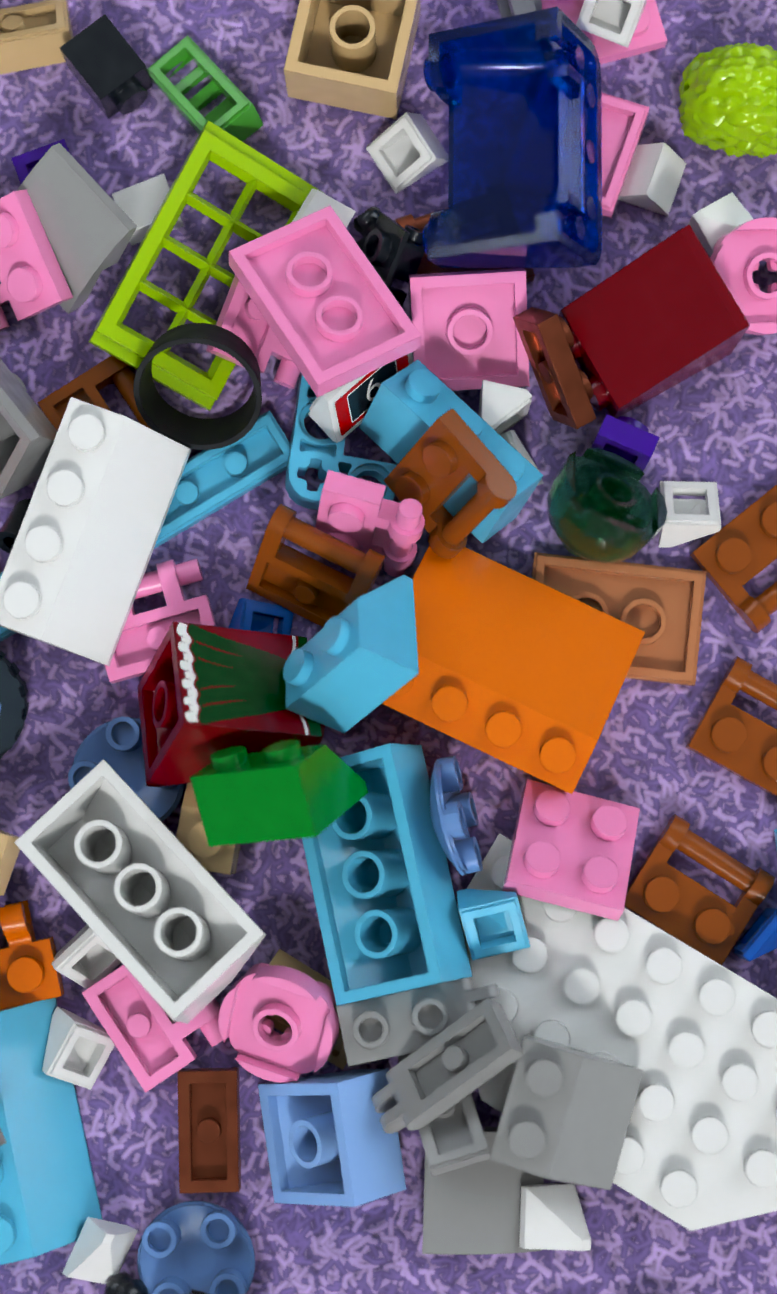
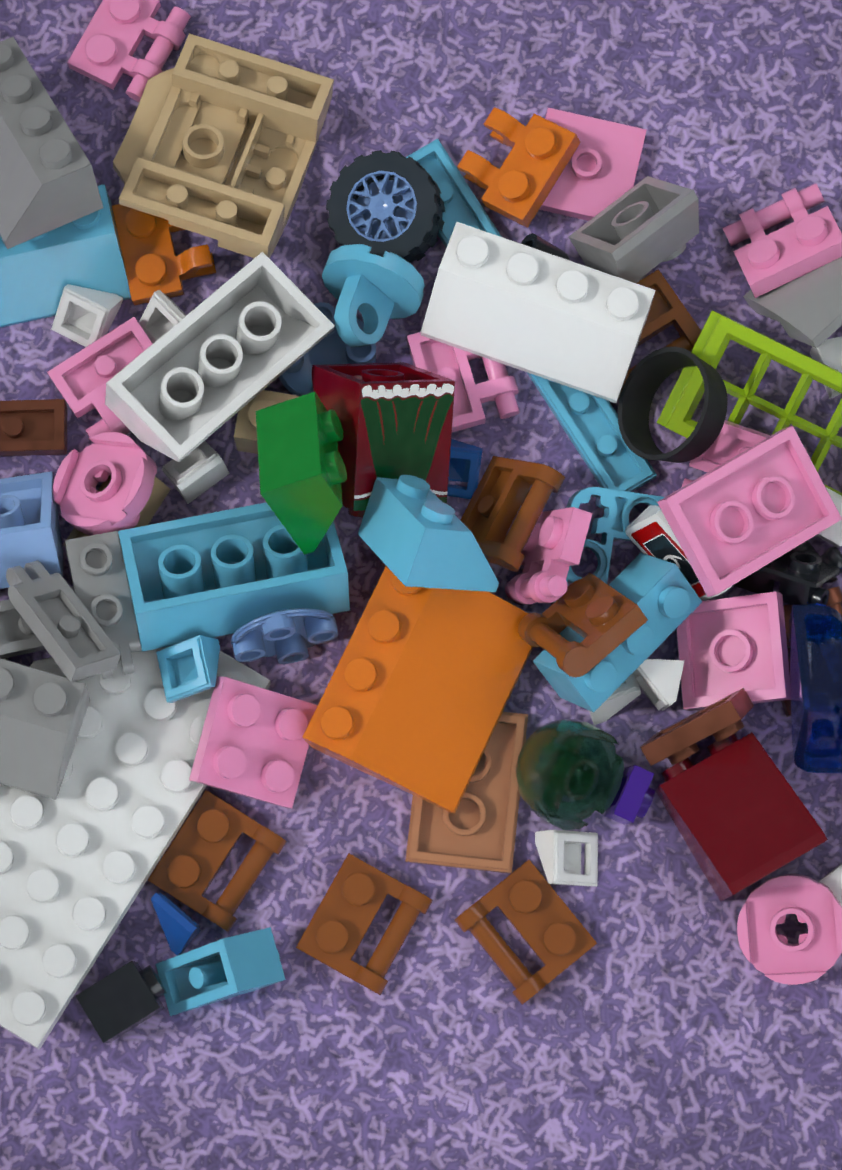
camera: 85 degrees right, 5 degrees down
(56, 719) = (375, 286): none -> medium azure tile
(268, 916) = (196, 472): none -> white slope

